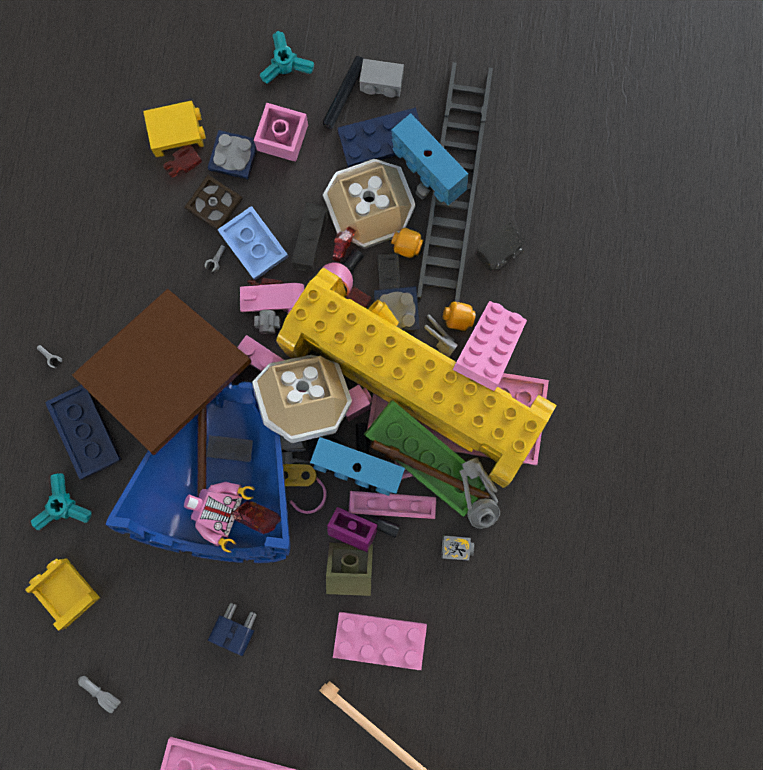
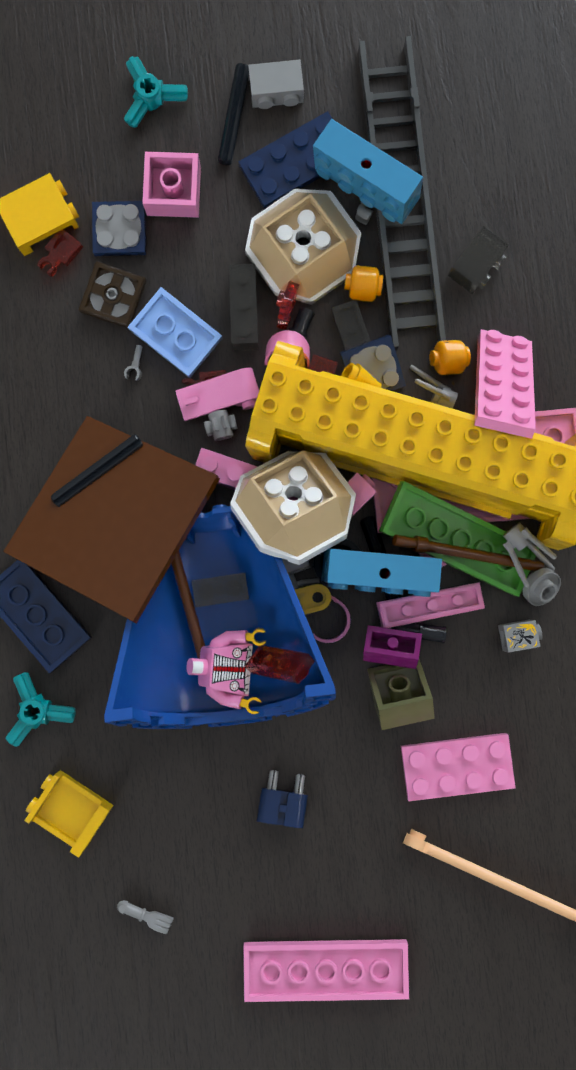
camera: 15 degrees left, 5 degrees up
(161, 331) = (97, 470): none -> black axle

